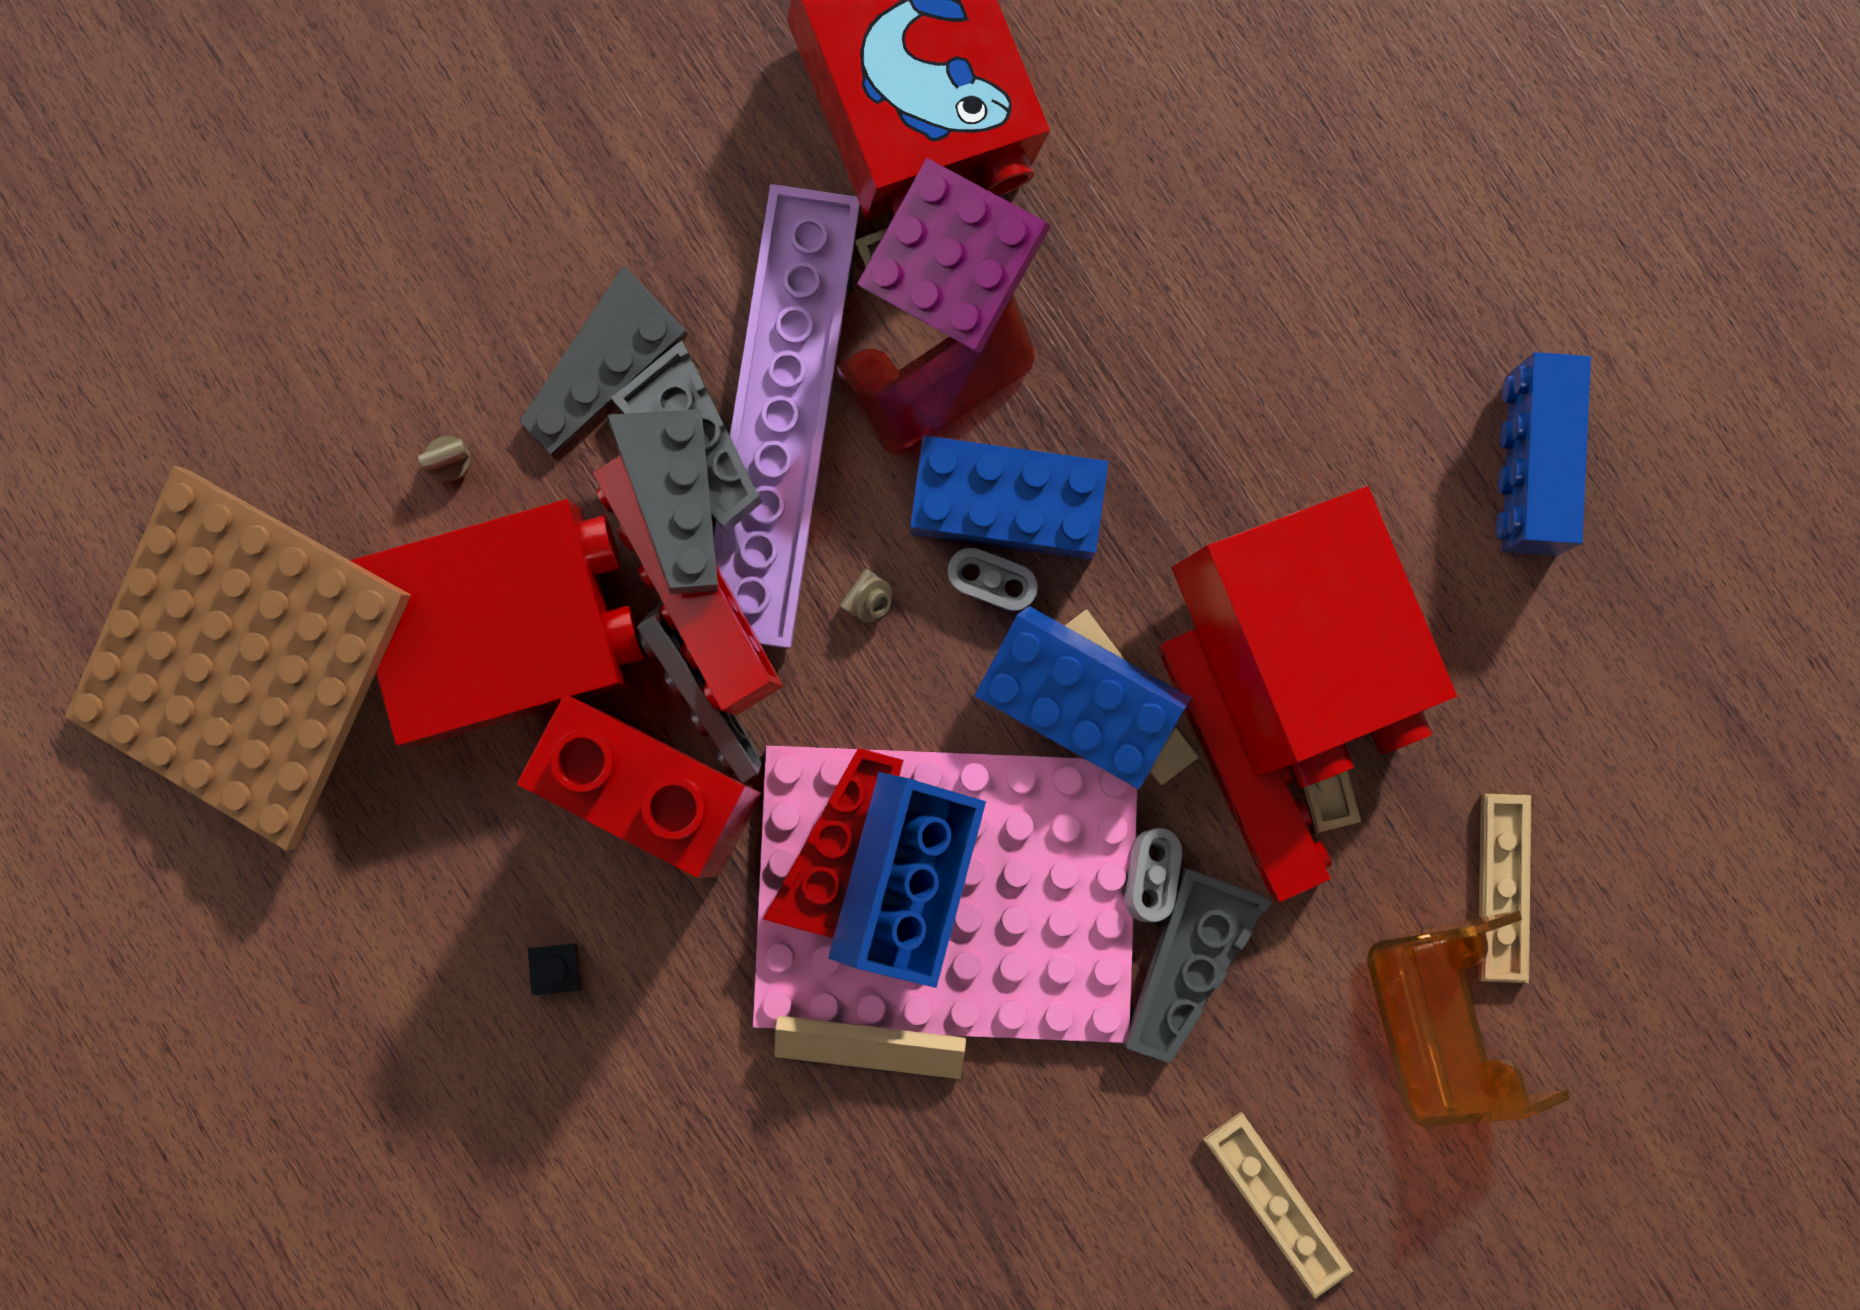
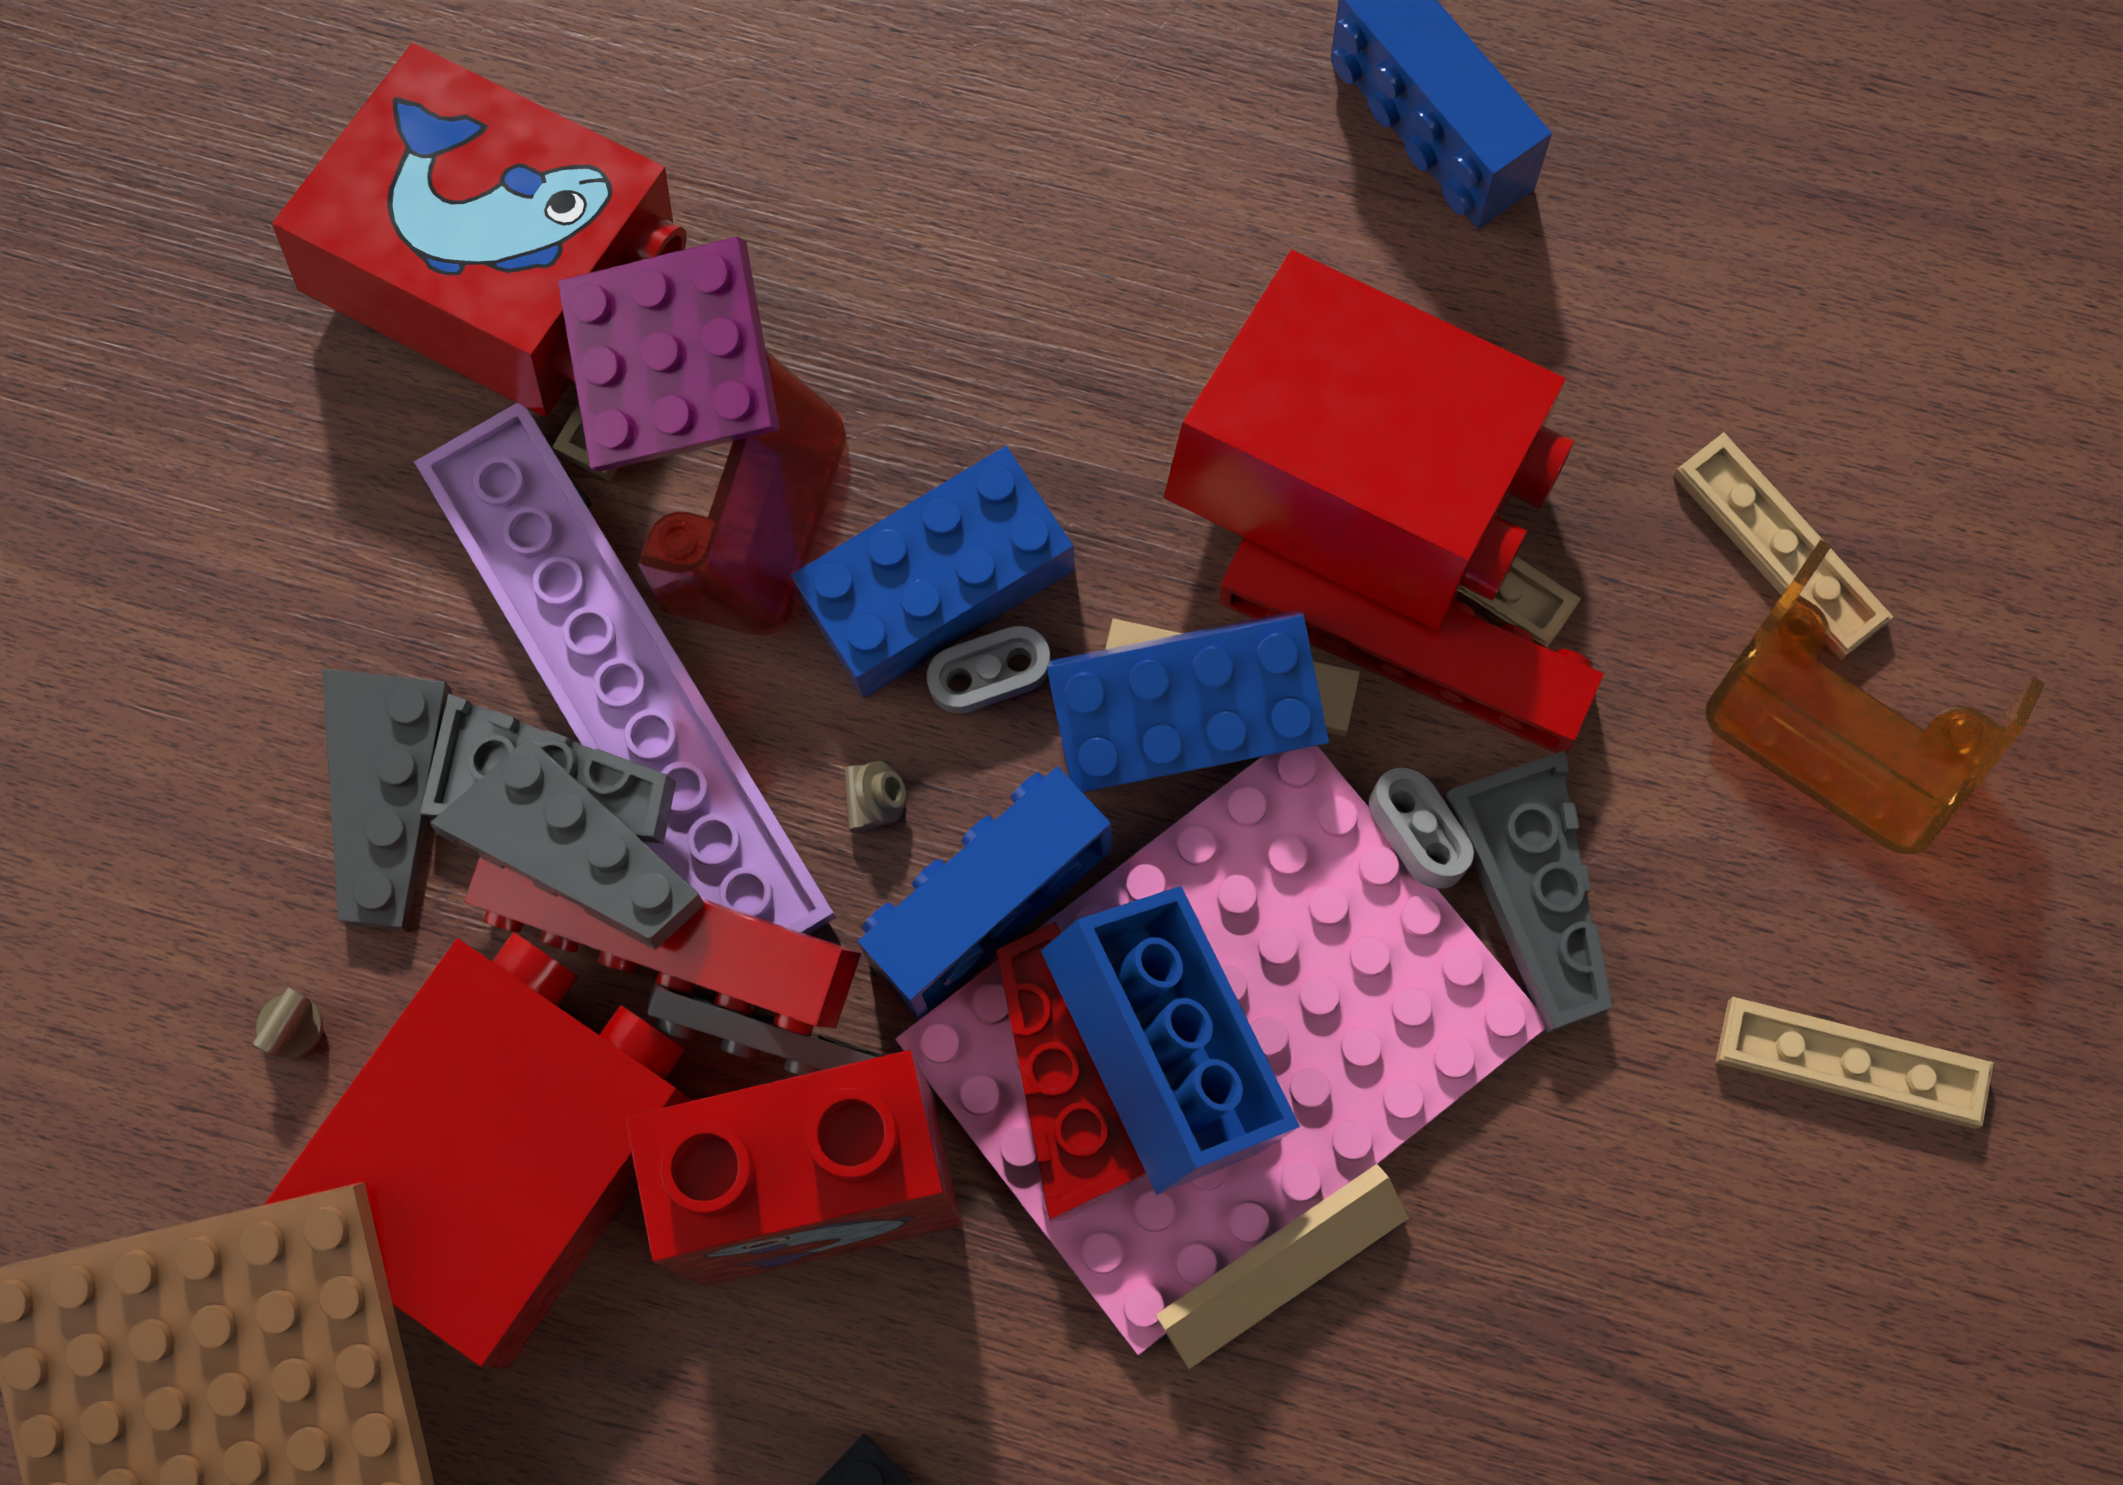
camera: 35 degrees left, 10 degrees down
(879, 710) = (986, 891): none -> blue brick

